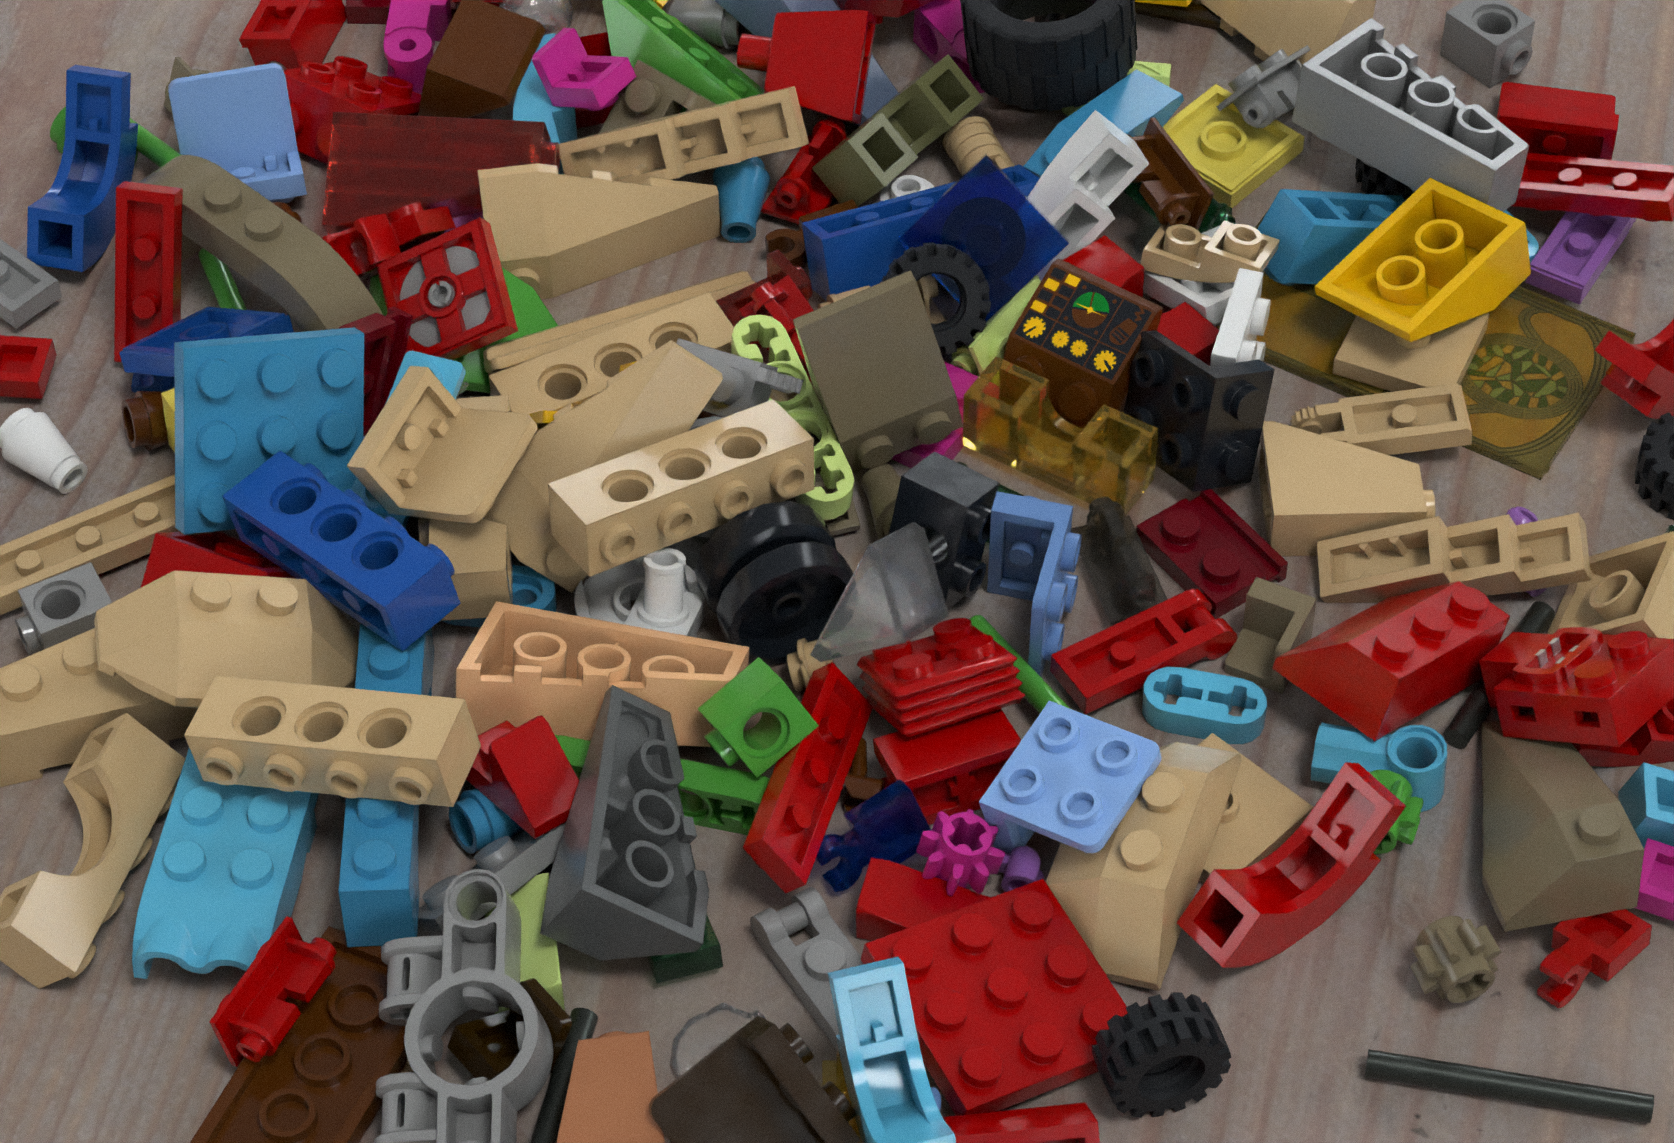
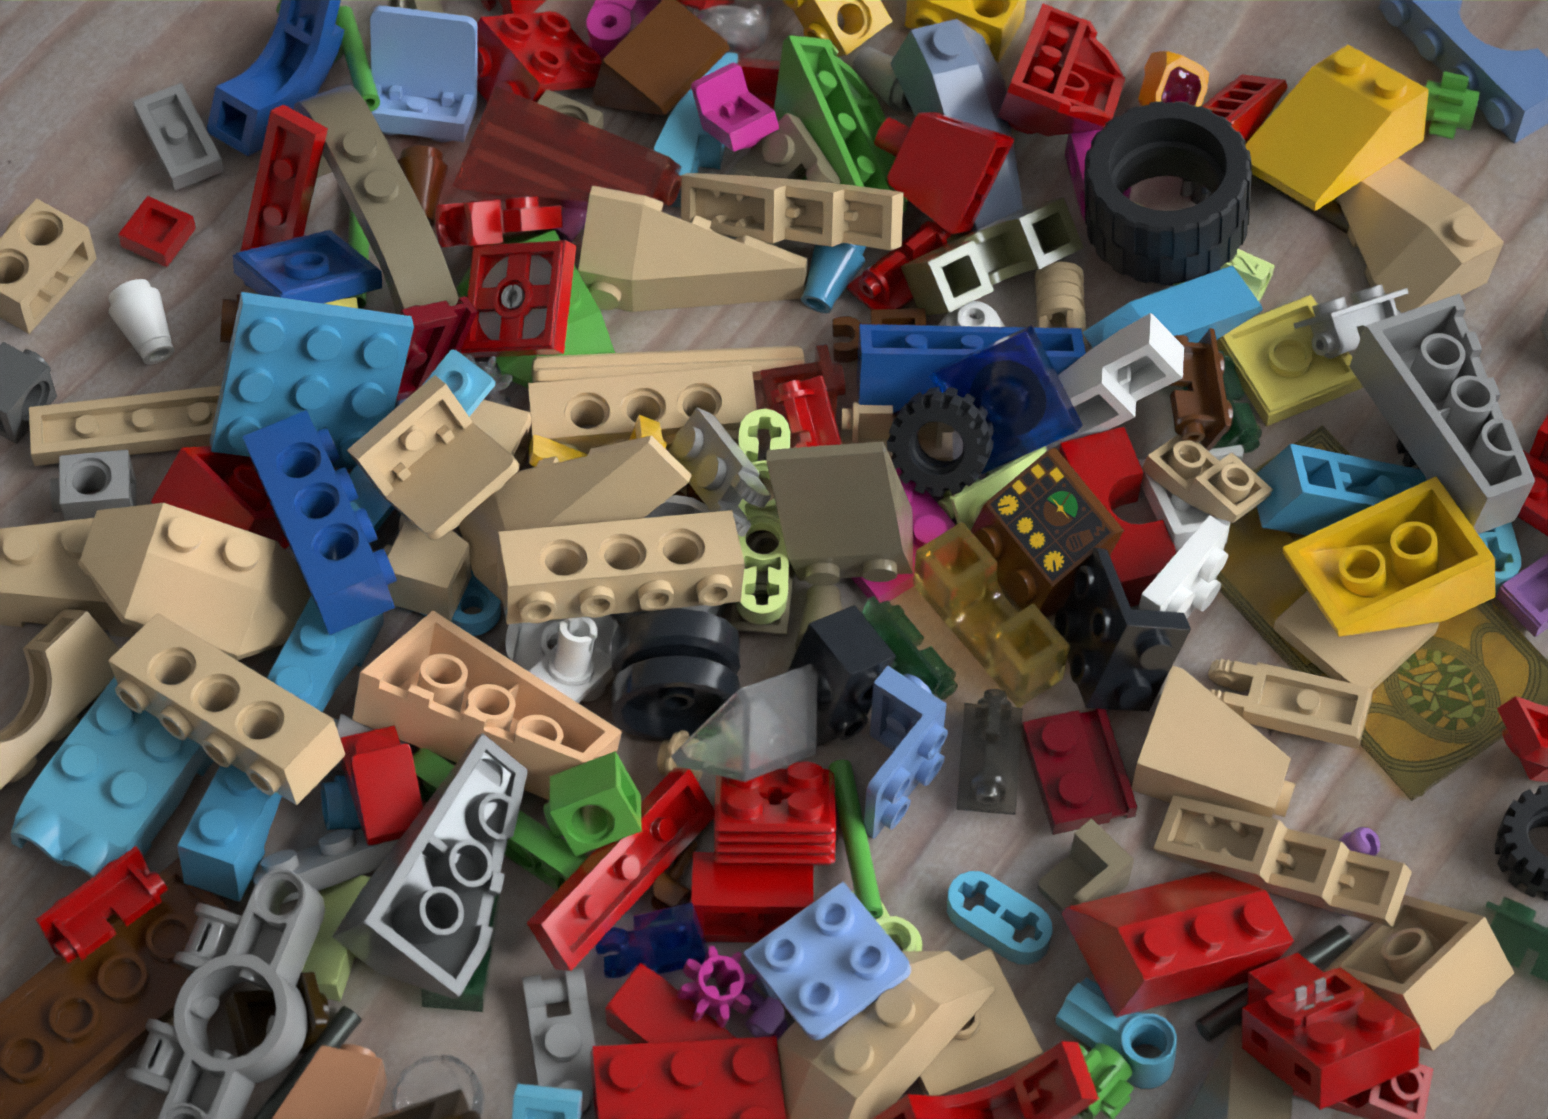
camera: 20 degrees right, 10 degrees up
(1125, 654) = (975, 841): red plate -> none

